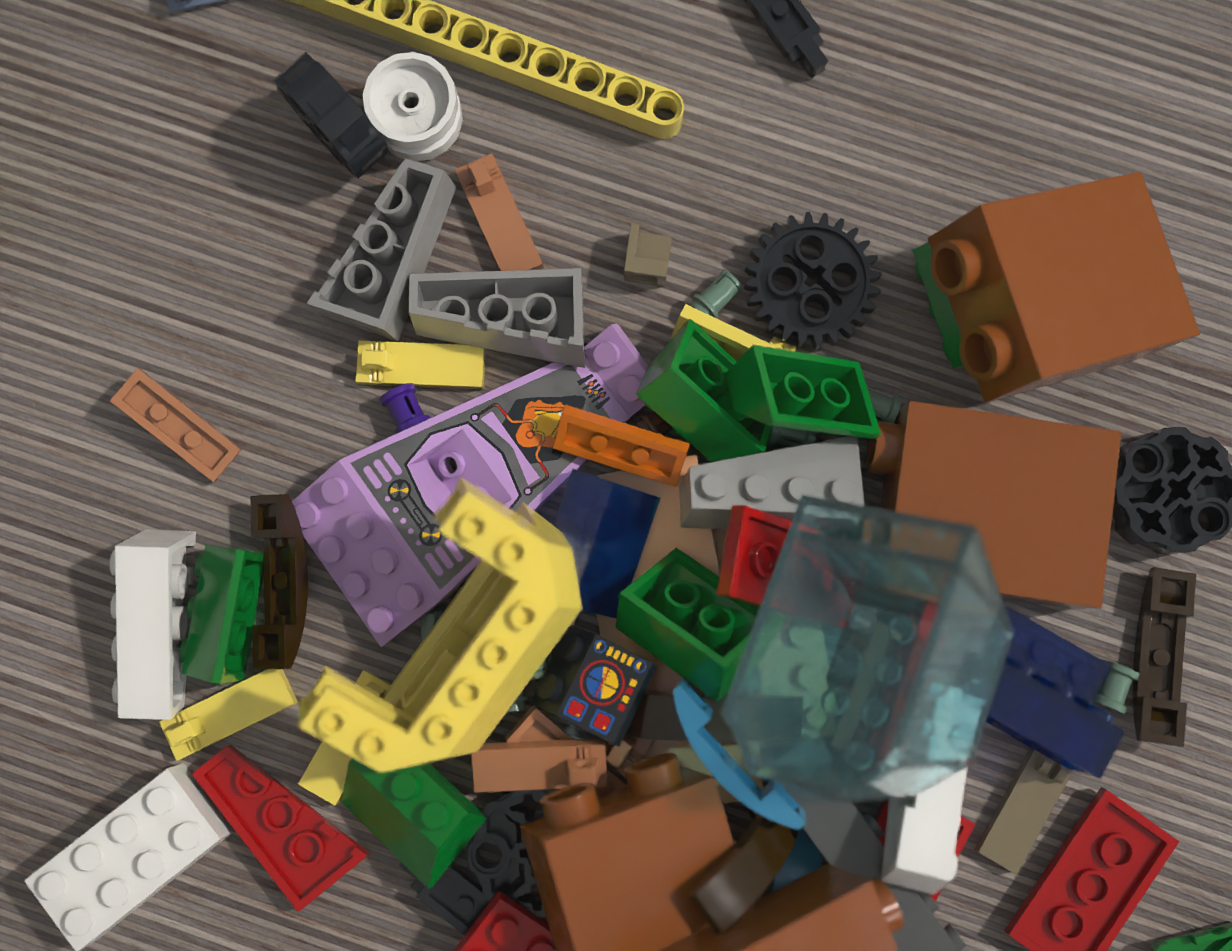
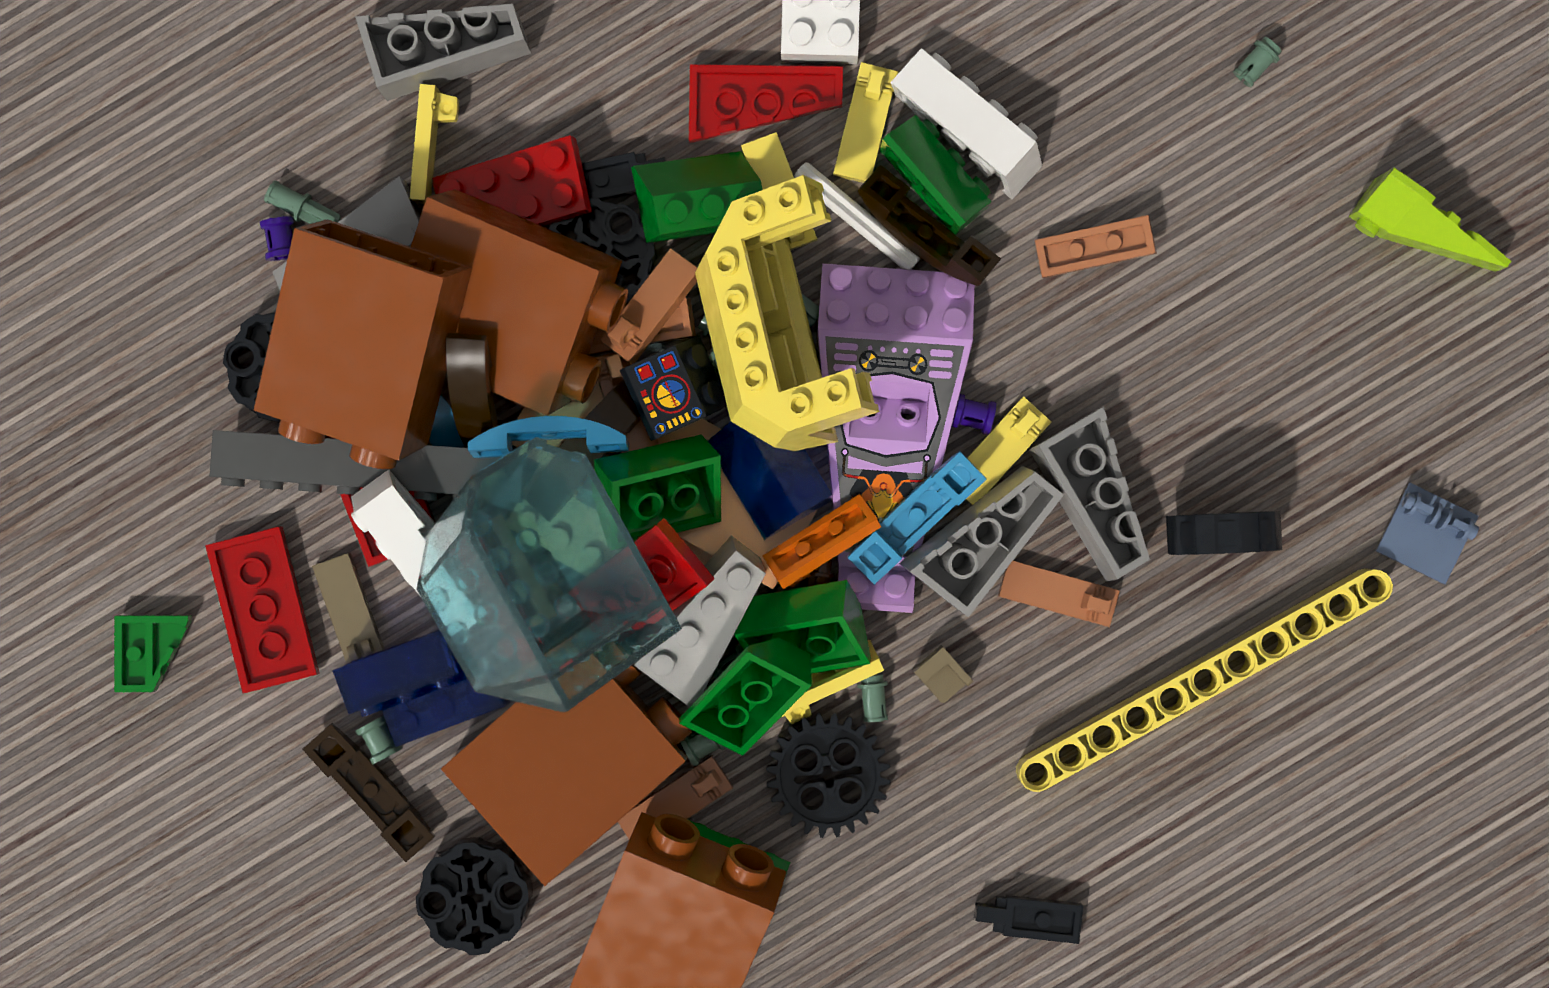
camera: 130 degrees right, 5 degrees up
(316, 629) = (860, 219): none -> white axle
(413, 106) = (1210, 597): white wheel -> none
(530, 385) = (916, 516): none -> dark azure slope
(934, 384) = (683, 795): none -> nougat hinge

